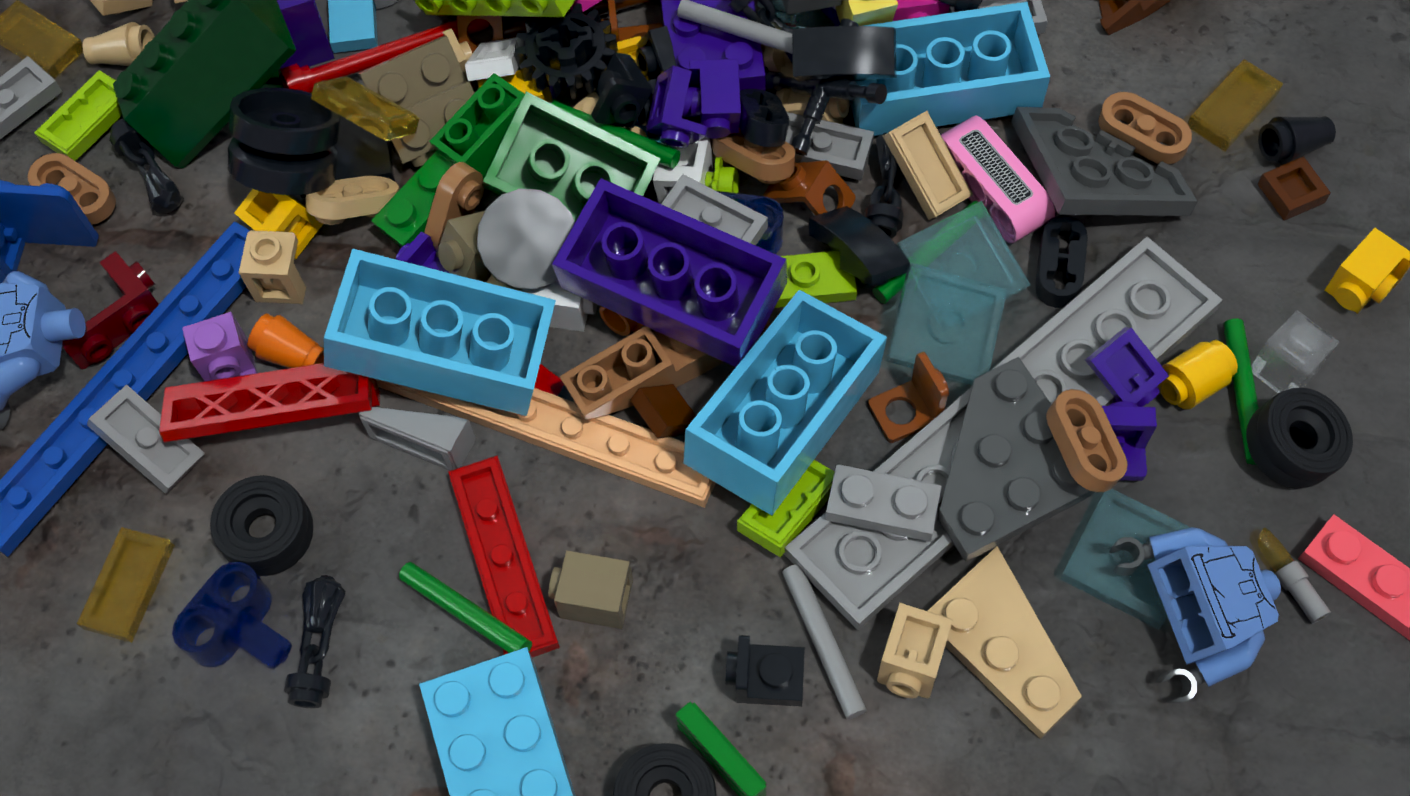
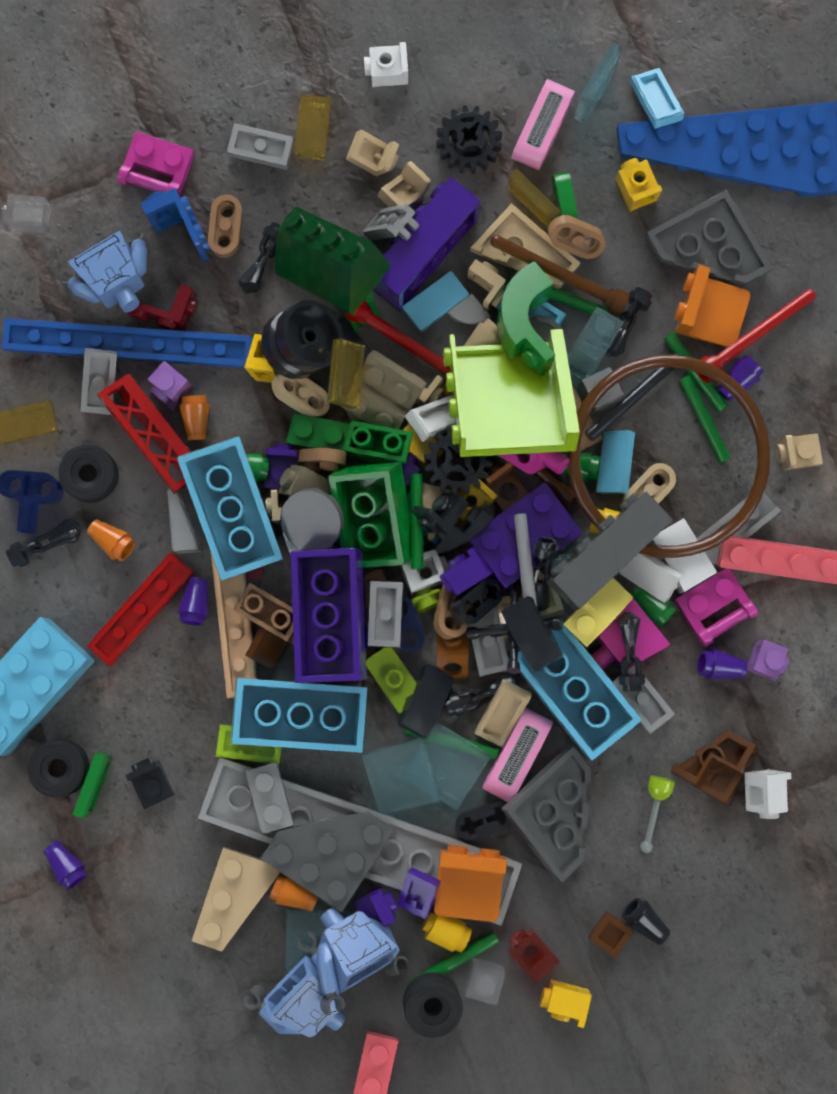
camera: 55 degrees right, 20 degrees up
(82, 118) = (274, 197): lime plate -> none
(118, 45) = (333, 186): tan cone -> none
(270, 269) = (234, 377): tan bracket -> none
(376, 542) = (111, 540): none -> orange cone
(463, 608) = (99, 609): green bar -> none
(542, 475) = (194, 604): none -> dark purple cone
(592, 589) = (144, 668): dark tan brick -> none
(671, 102) = (443, 550): dark purple bracket -> none
(824, 642) = (183, 803): light grey bar -> none
(914, 652) = (198, 854): tan bracket -> none
(926, 394) = (353, 787): dark orange bracket -> none
(1042, 548) = (291, 894): none -> orange cone
(1089, 444) = (353, 894): medium nougat plate -> none
(1125, 47) = (659, 789): none -> hinge
(1142, 294) = (470, 883): none -> orange bracket
(1145, 127) = (604, 827): medium nougat plate -> none
(1177, 489) = (352, 952): none -> medium blue torso
(1234, 105) = (655, 873): clear yellow tile -> none
(1282, 281) = (538, 964): none -> clear red brick
(1292, 577) = (351, 1032): light grey piece -> none

